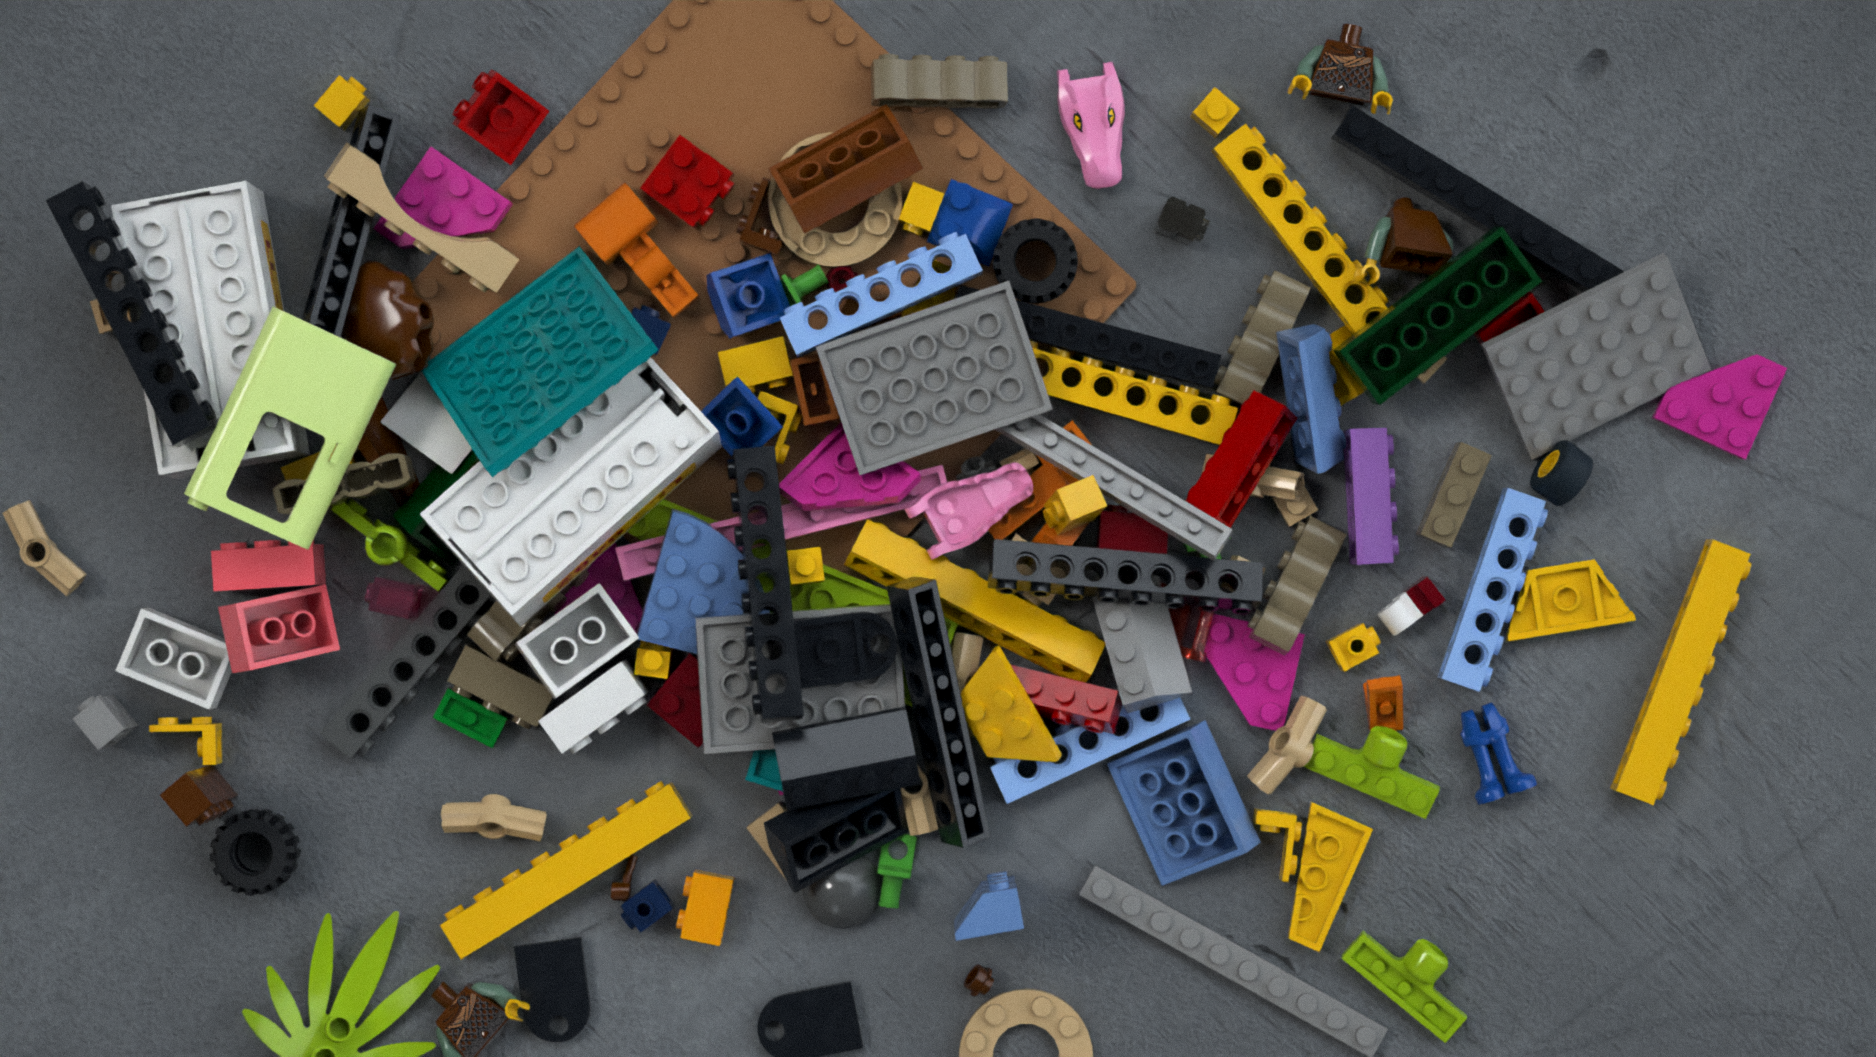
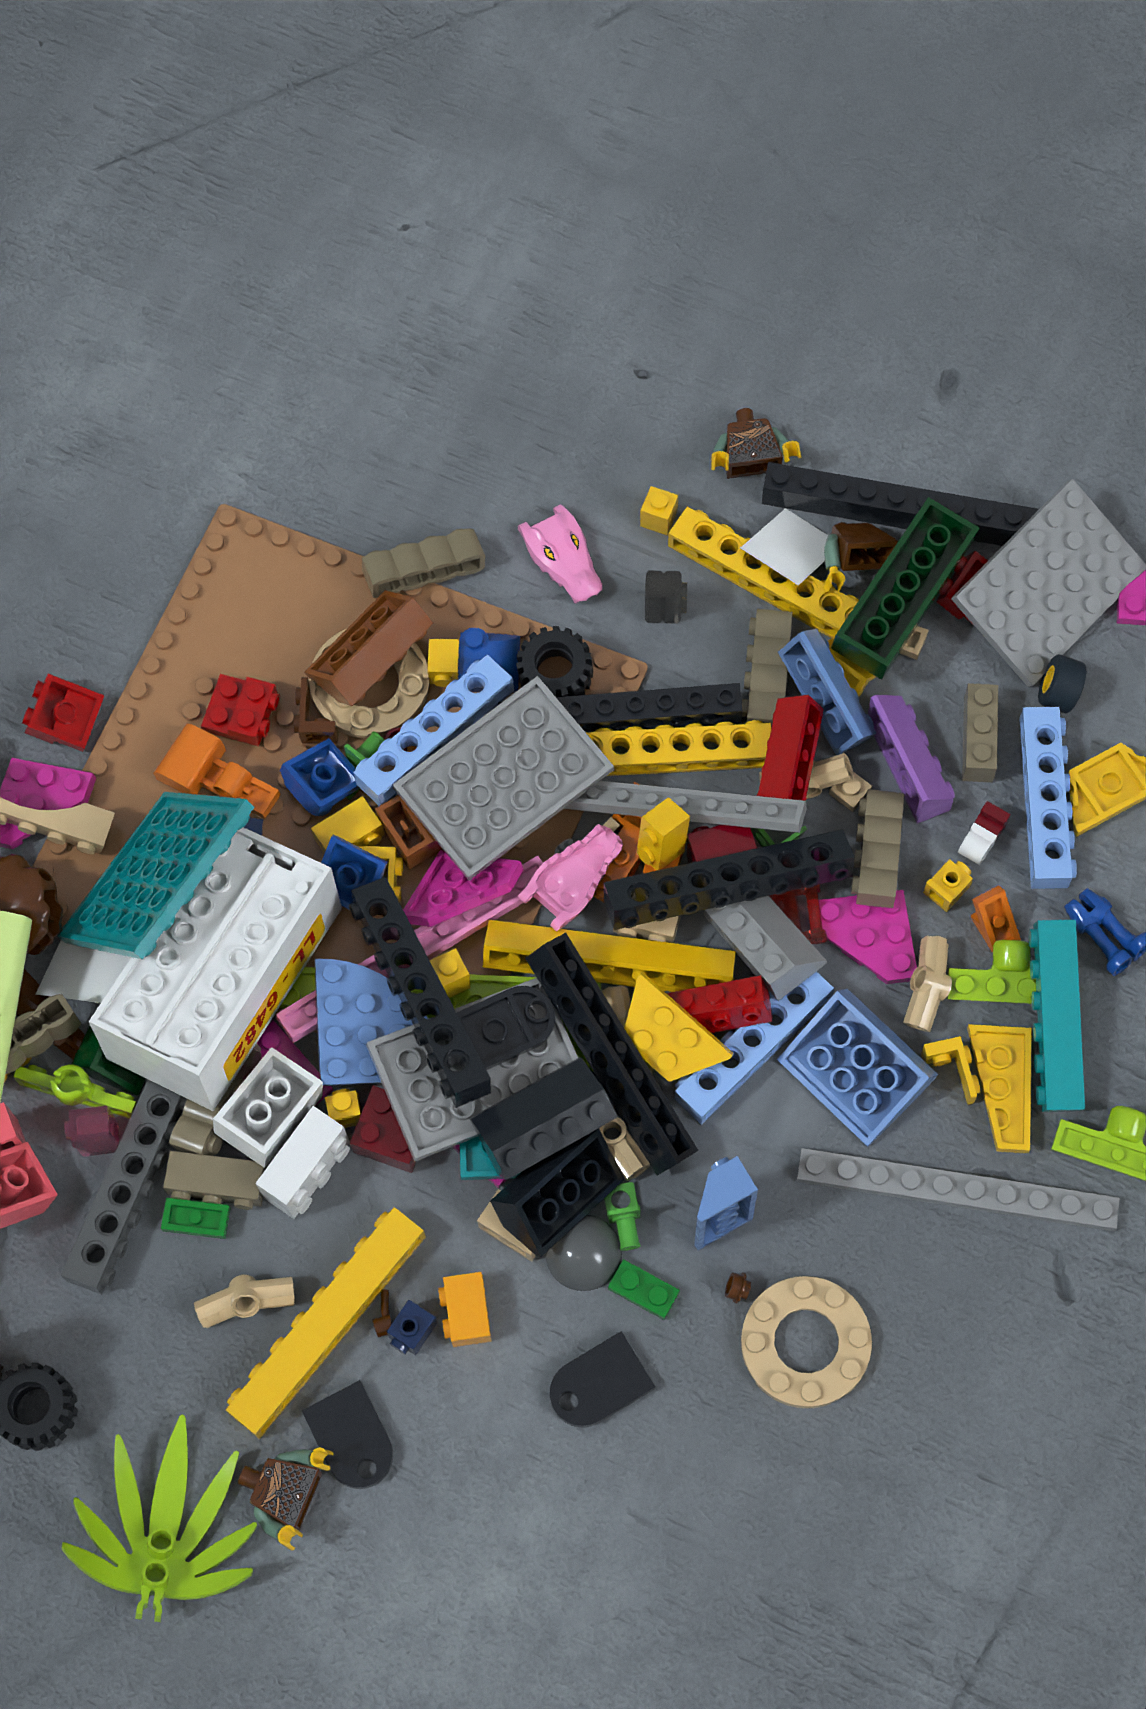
camera: 15 degrees left, 20 degrees down
(887, 948) = (643, 1289): none -> green plate
(1338, 208) = (789, 546): none -> white sticker
(1403, 831) = (1058, 1016): none -> teal brick

